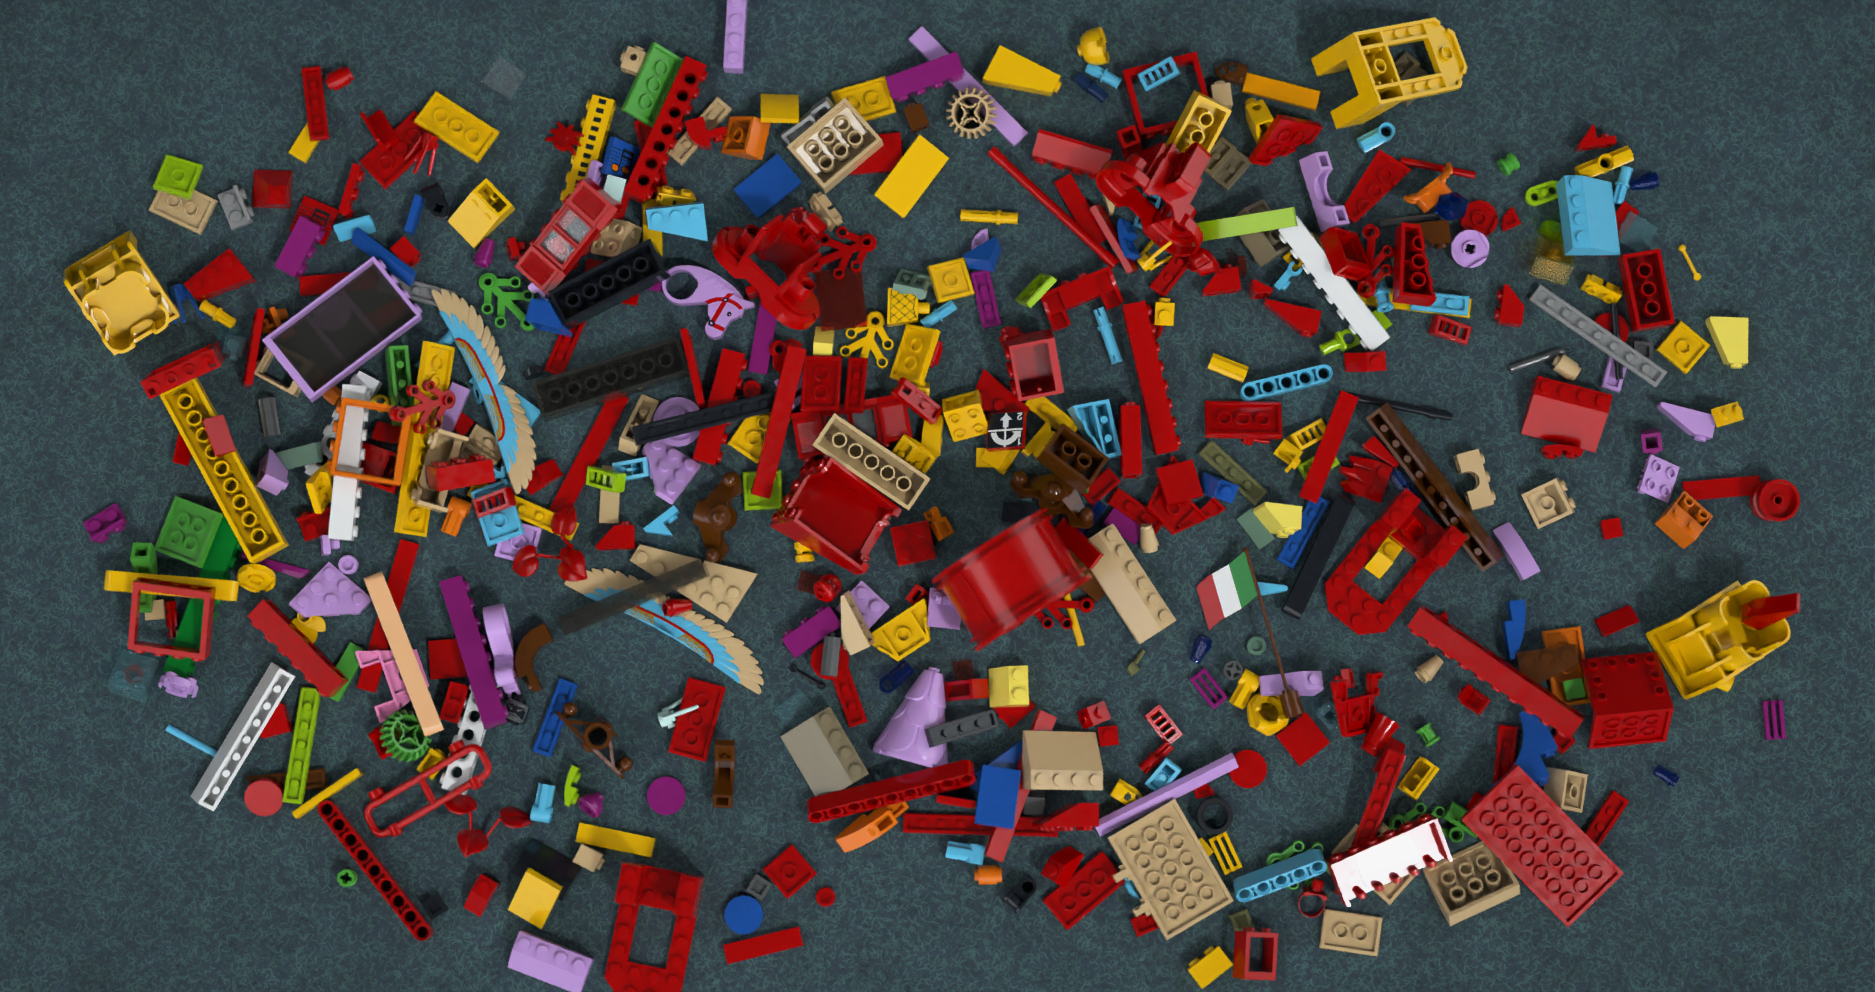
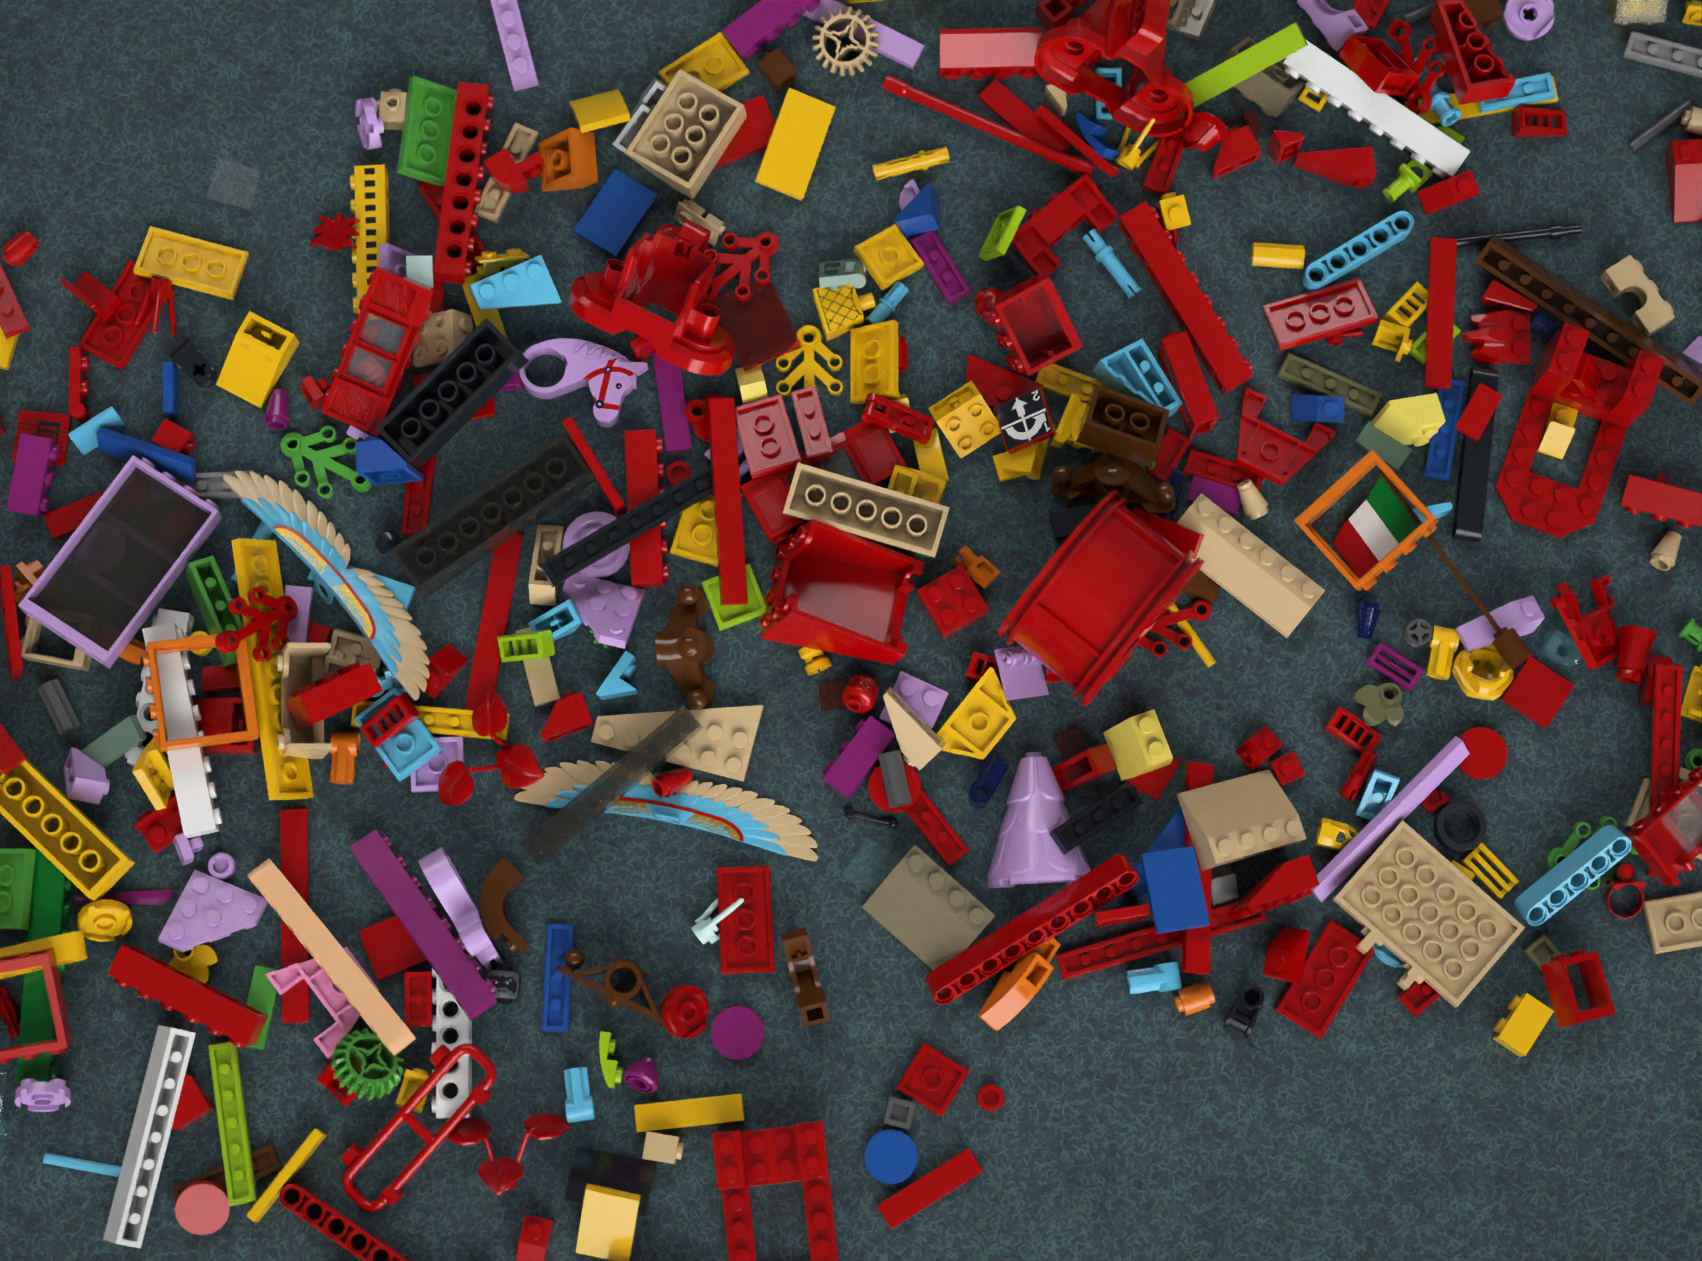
camera: 15 degrees left, 5 degrees down
(611, 67) = (370, 125): none -> lavender plate
(620, 159) = (414, 234): blue tile -> none
(634, 770) = (685, 1011): none -> red tile
(1133, 668) = (1288, 671): olive hand -> none
(1179, 482) = (1267, 416): red tile -> none
(1186, 714) = (1378, 707): none -> olive plate
(1209, 552) = (1336, 491): none -> orange window
(1256, 645) = (1436, 593): sand green tile -> none
(1283, 281) = (1310, 127): medium azure plate -> none
(1329, 527) = (1478, 411): none -> red tile
(1510, 308) = (1605, 72): red slope -> none

